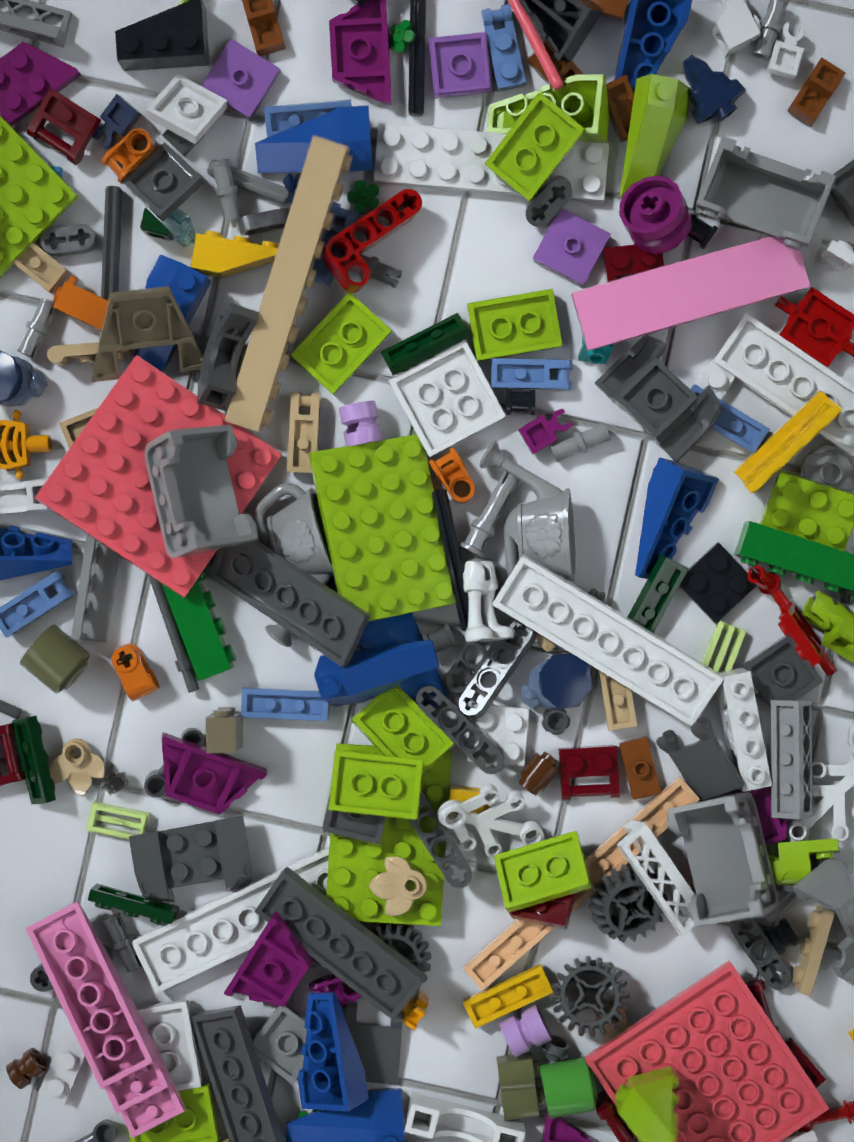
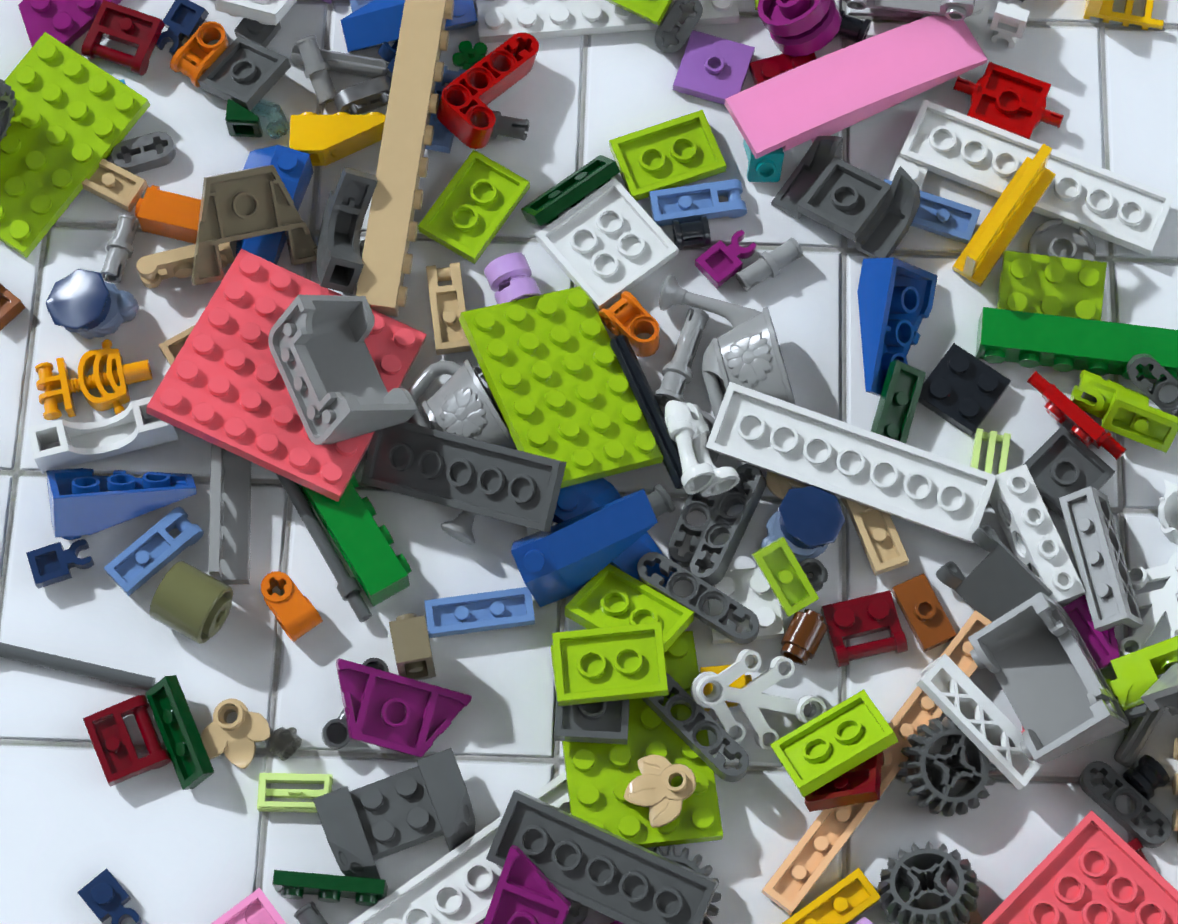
camera: 10 degrees left, 20 degrees down
(111, 241) = (192, 142): dark grey axle -> none
(533, 725) = (785, 576): none -> lime plate
(764, 580) = (1015, 371): red pin -> none

